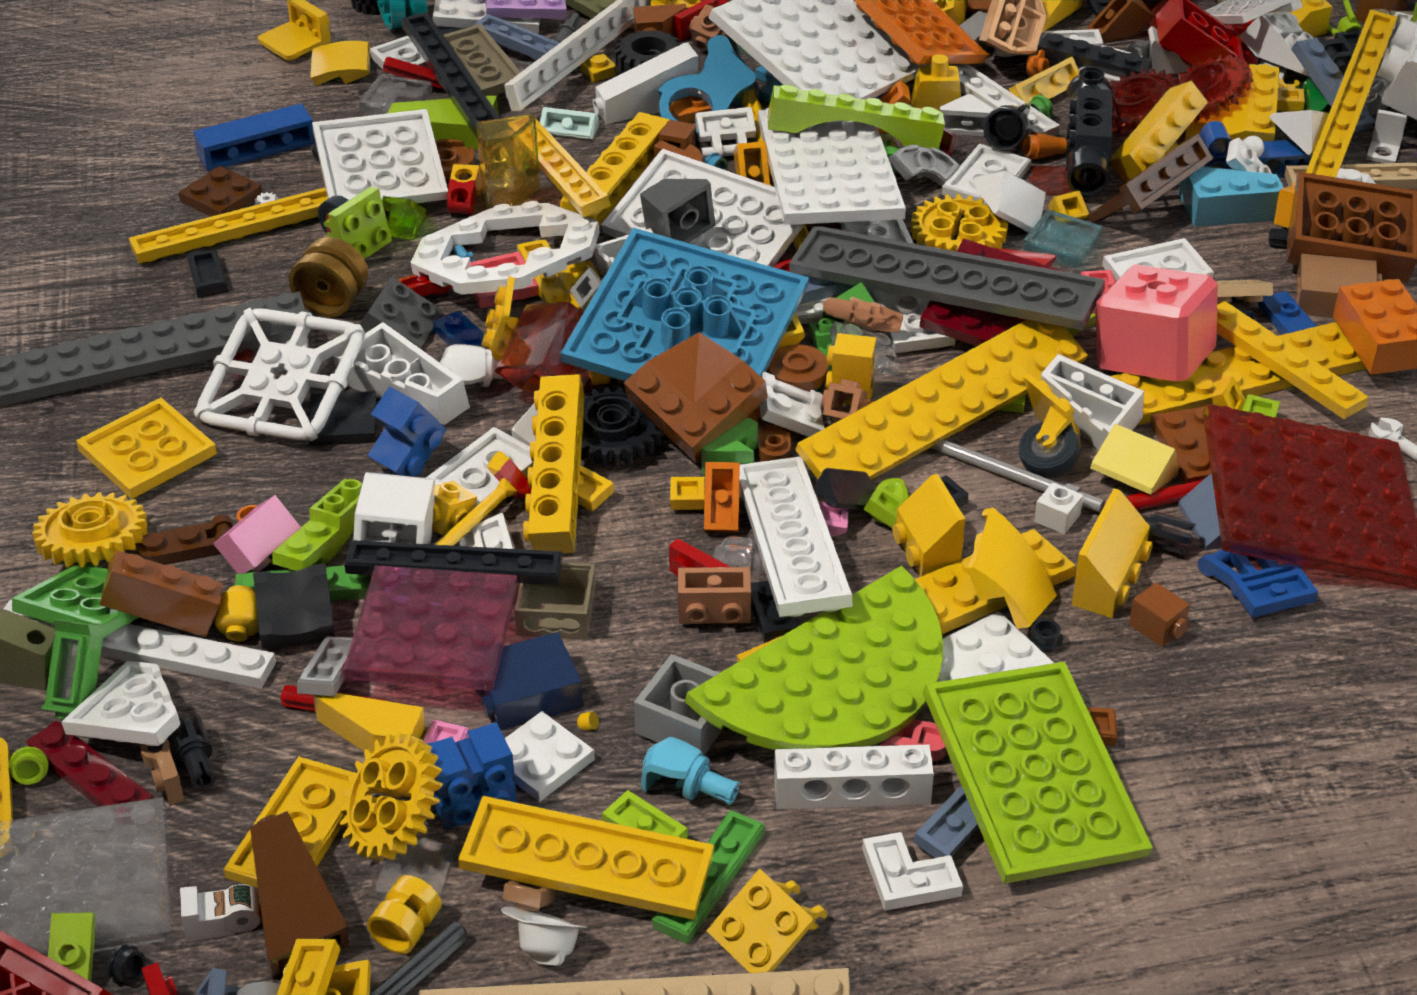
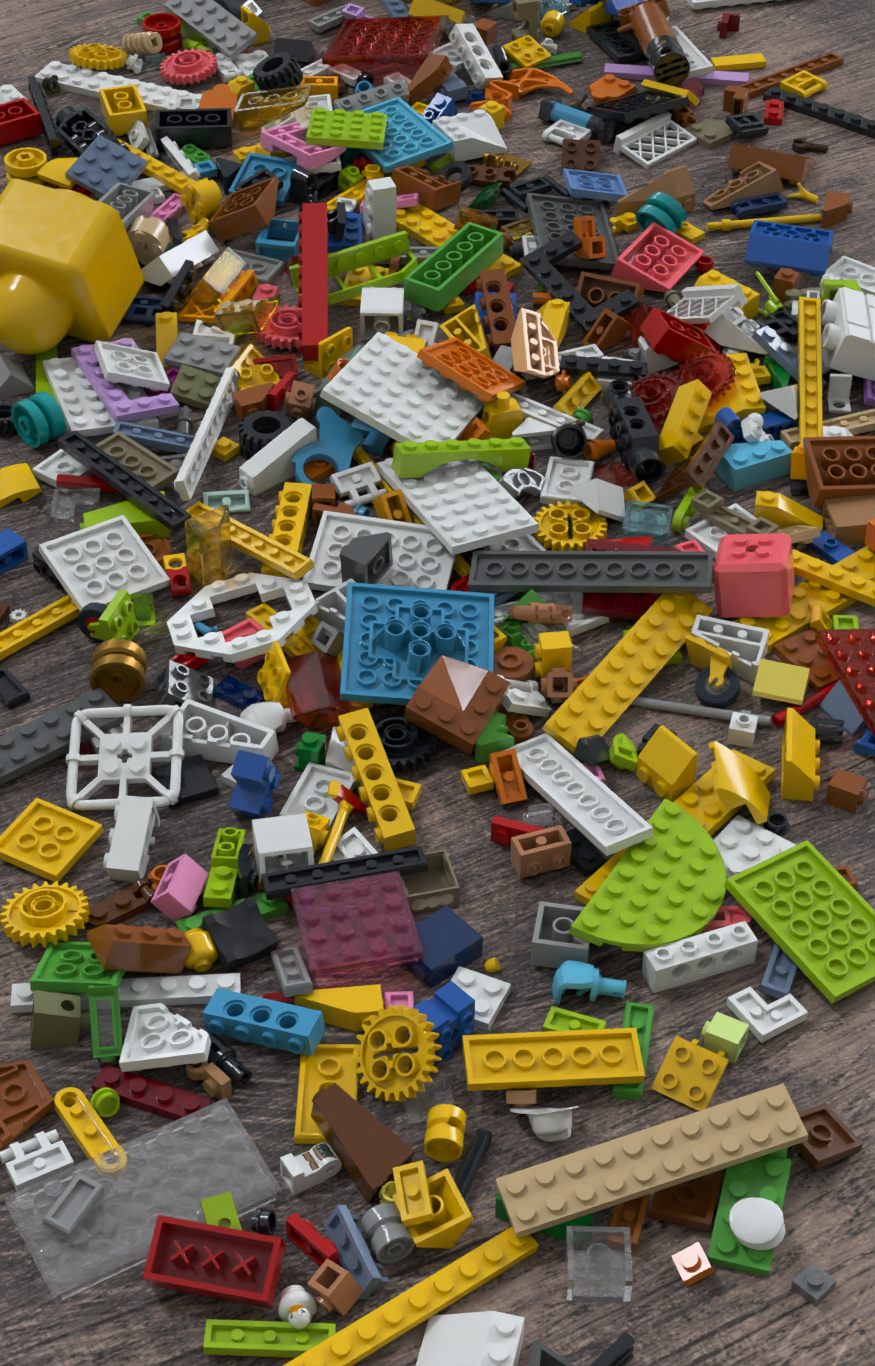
camera: 20 degrees left, 0 degrees up
(237, 466) = (131, 838): none -> white wedge
(263, 718) = (264, 1022): none -> dark azure brick
(340, 536) = (247, 876): none -> black slope
(502, 411) = (310, 749): none -> green brick
(835, 888) = (725, 1035): none -> yellowish green brick
(1119, 233) = (684, 512): none -> lime plate
(1149, 239) = (712, 508): none -> dark tan slope
(1238, 258) = (784, 511): none -> yellow slope

